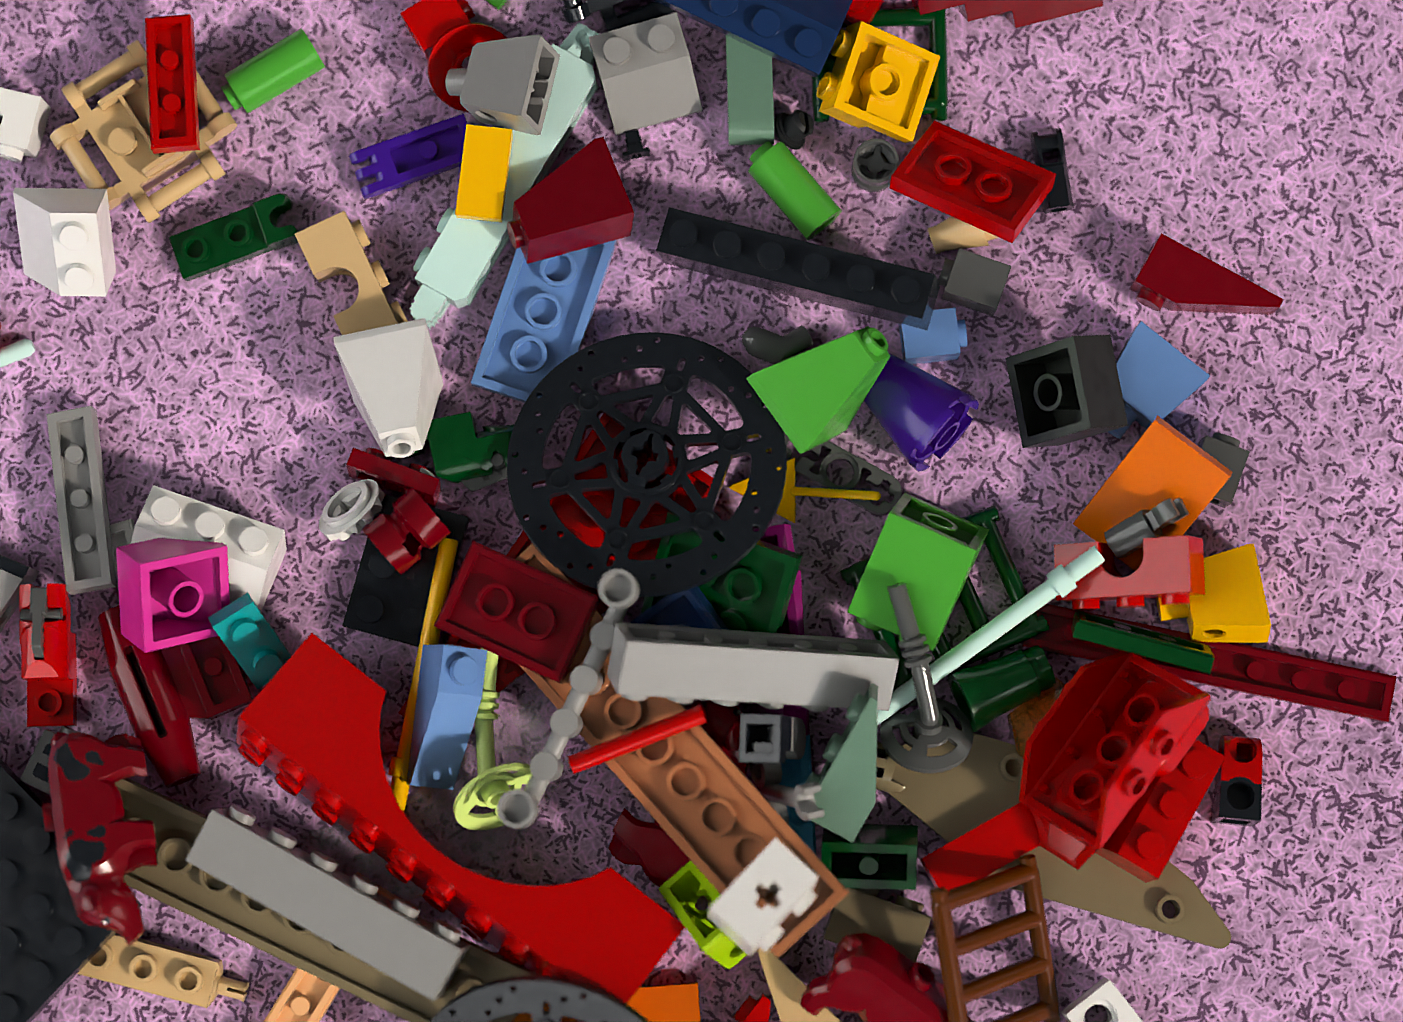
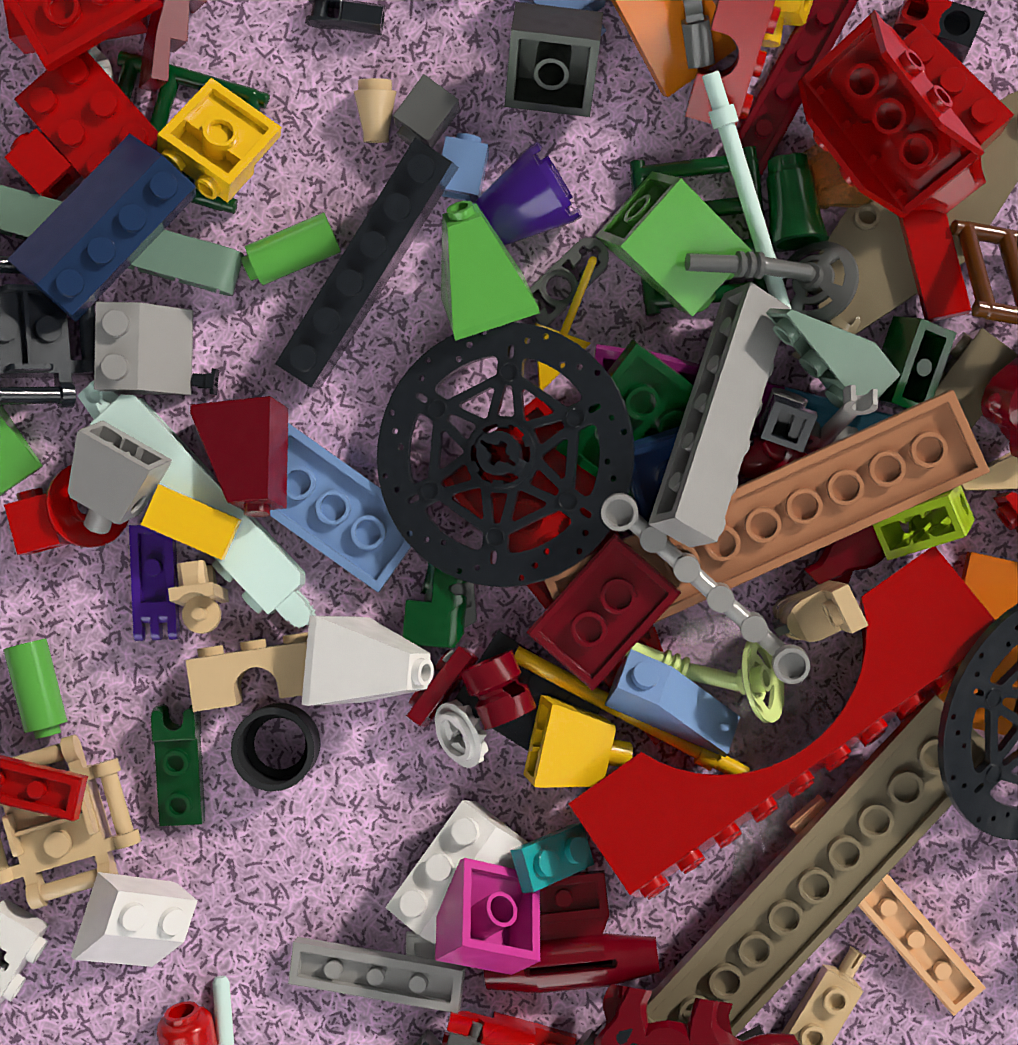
camera: 75 degrees left, 5 degrees up
(263, 301) = (253, 769): none -> black piece
(328, 901) = (816, 859): light grey brick -> none
(372, 623) = (572, 746): none -> yellow torso
(413, 203) = (198, 596): none -> tan hips
(579, 829) = (818, 613): none -> tan plate
(637, 739) = (754, 537): red piece -> none
(772, 871) = (918, 453): white brick -> none
(774, 347) = (428, 312): dark grey arm -> none
(793, 128) = (235, 232): black piece -> none
(876, 156) = (286, 164): dark grey wheel -> none
(972, 181) = (335, 84): red plate -> none
(1142, 641) = (795, 65): dark green tile -> none

